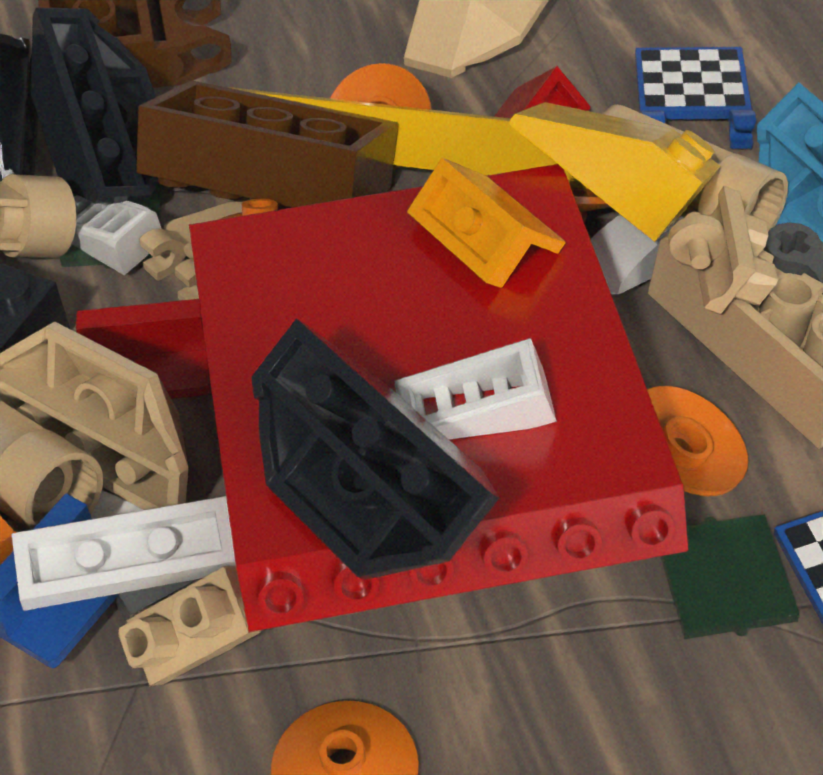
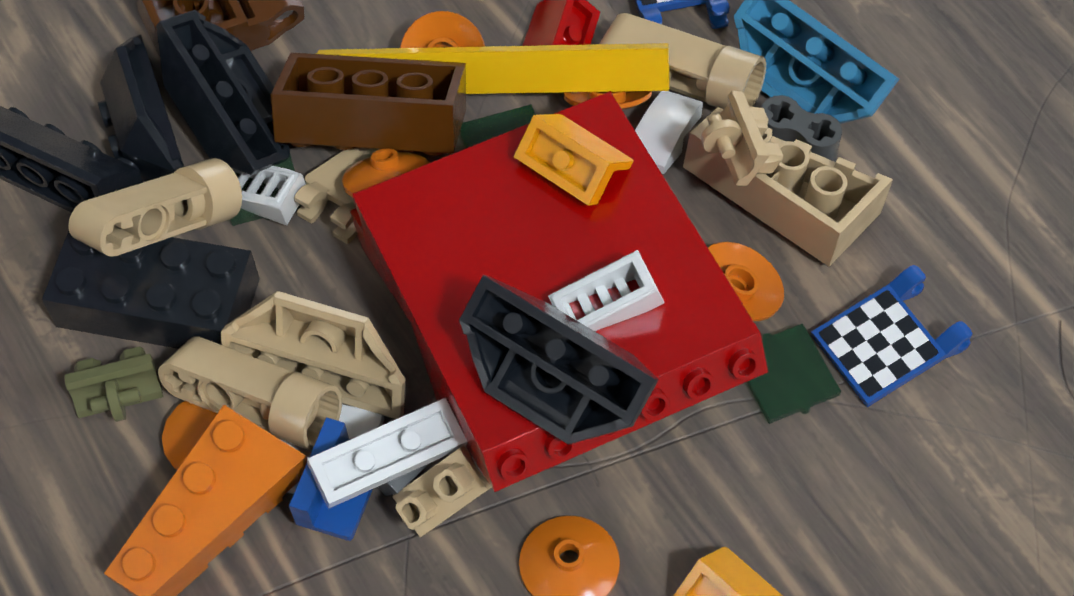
camera: 15 degrees left, 10 degrees up
(158, 337) = (334, 279): red panel -> none
(631, 165) = (651, 75): yellow slope -> none

